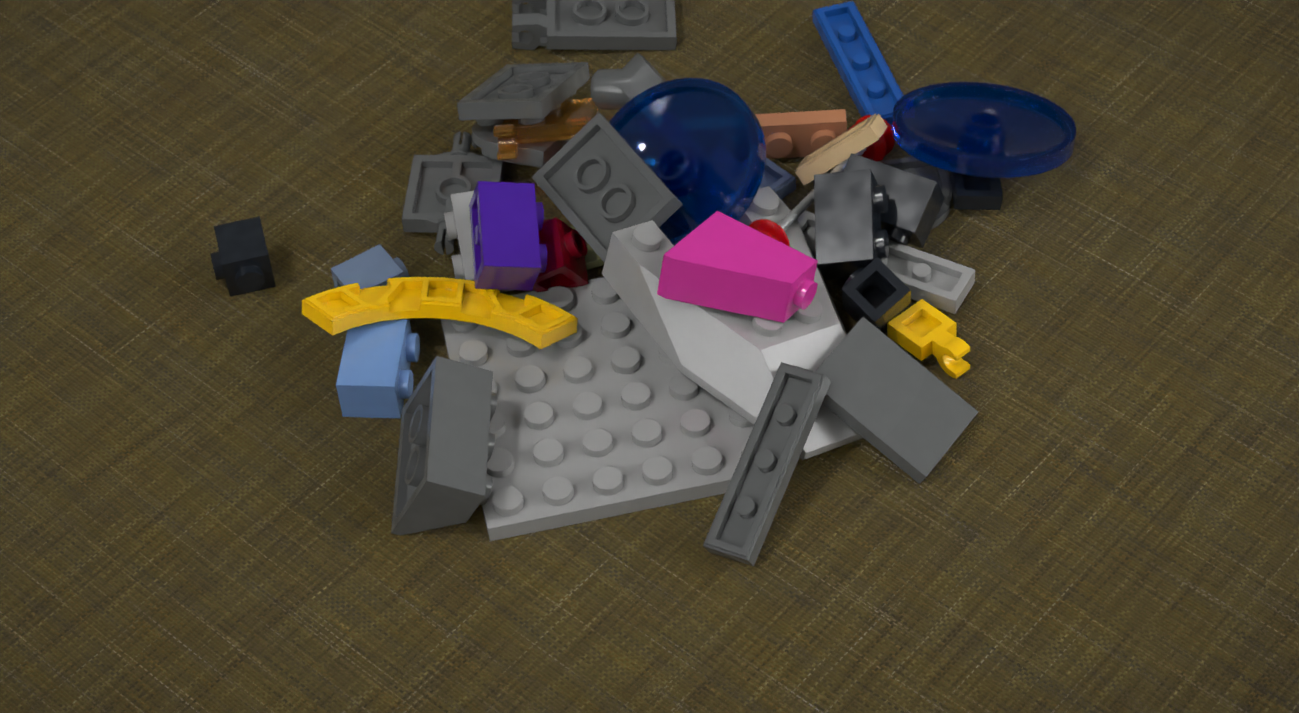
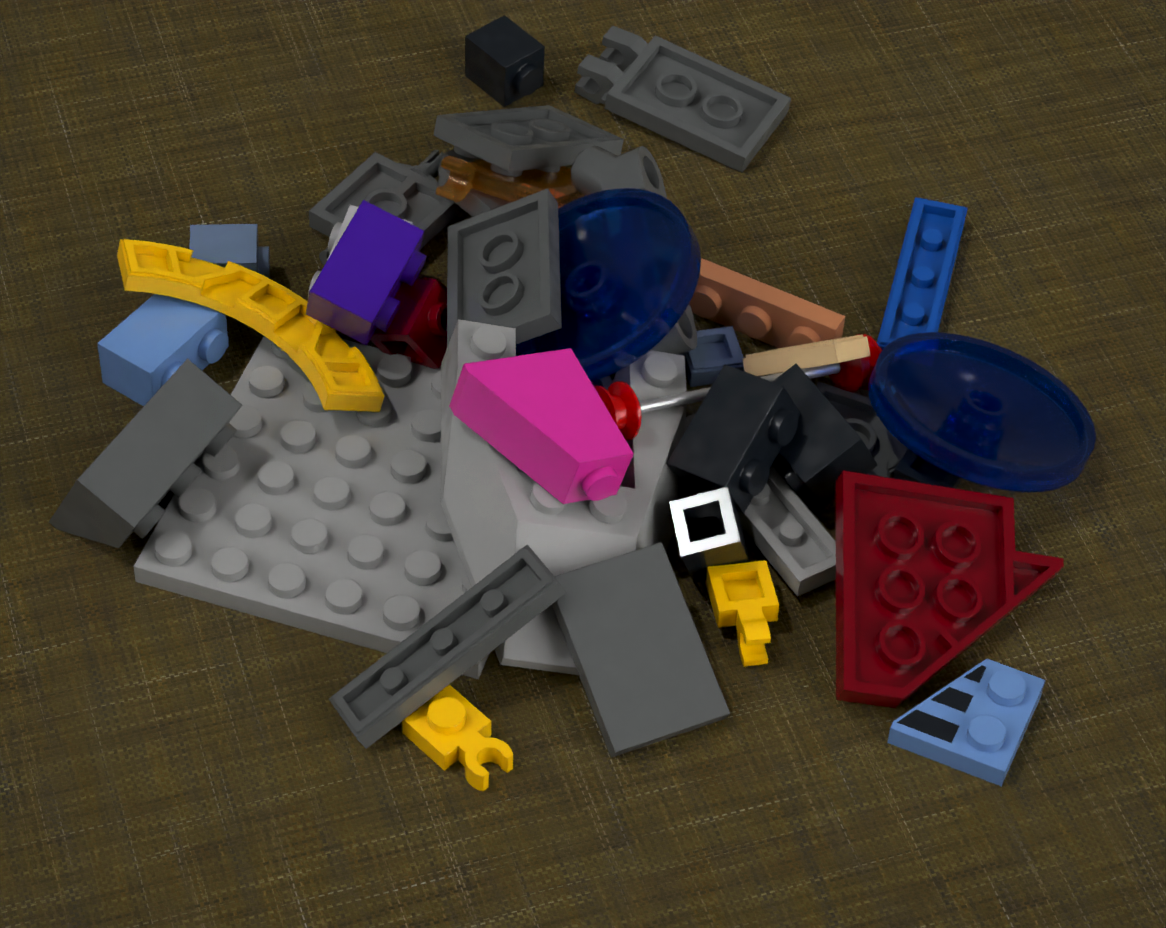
camera: 25 degrees right, 0 degrees up
(242, 257) = (131, 174): black brick -> none
(451, 48) = (504, 61): none -> black brick
(805, 522) = (454, 731): none -> yellow plate
(1032, 261) = (920, 581): none -> dark red wing
(1134, 336) = (973, 721): none -> medium blue wing

